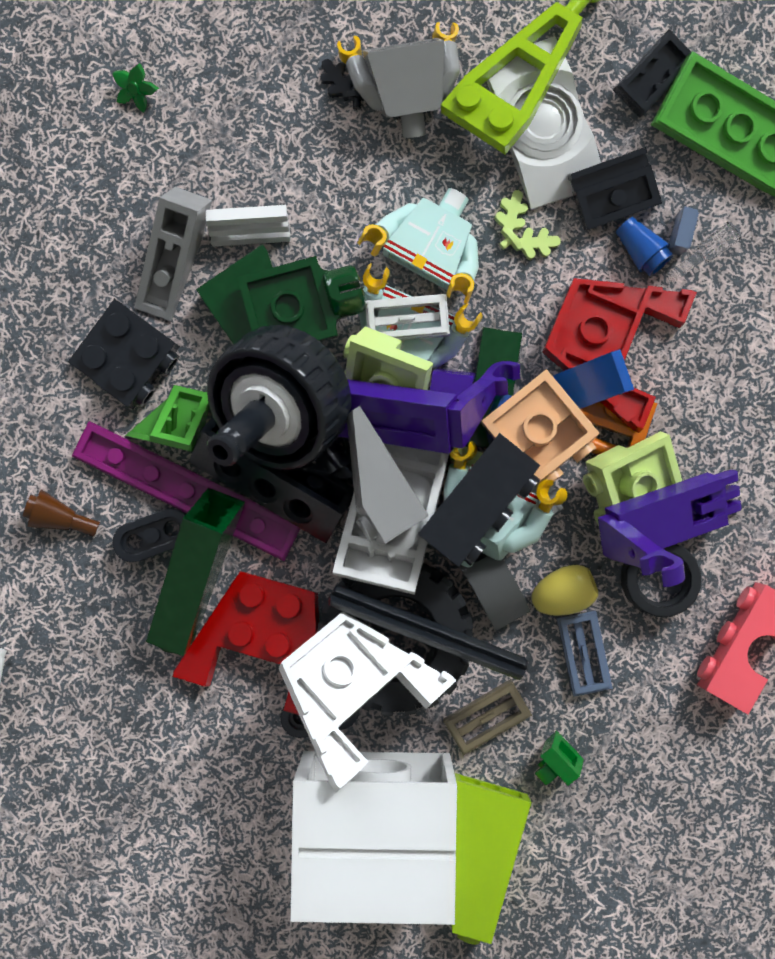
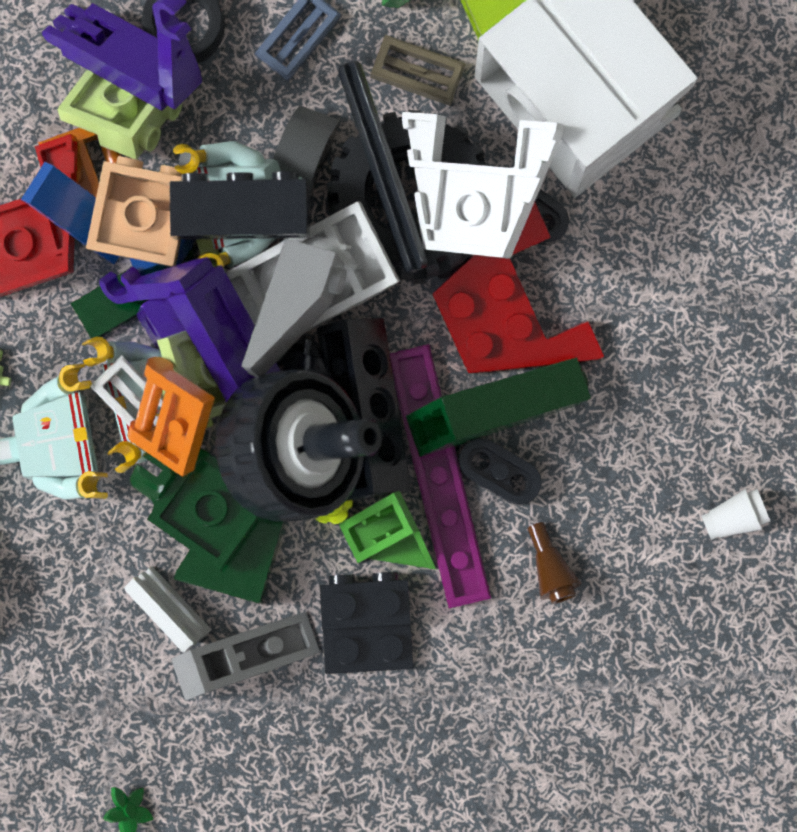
camera: 135 degrees left, 5 degrees down
(359, 332) = (181, 418): none -> orange plate
(565, 591) = (259, 90): light yellow animal -> none

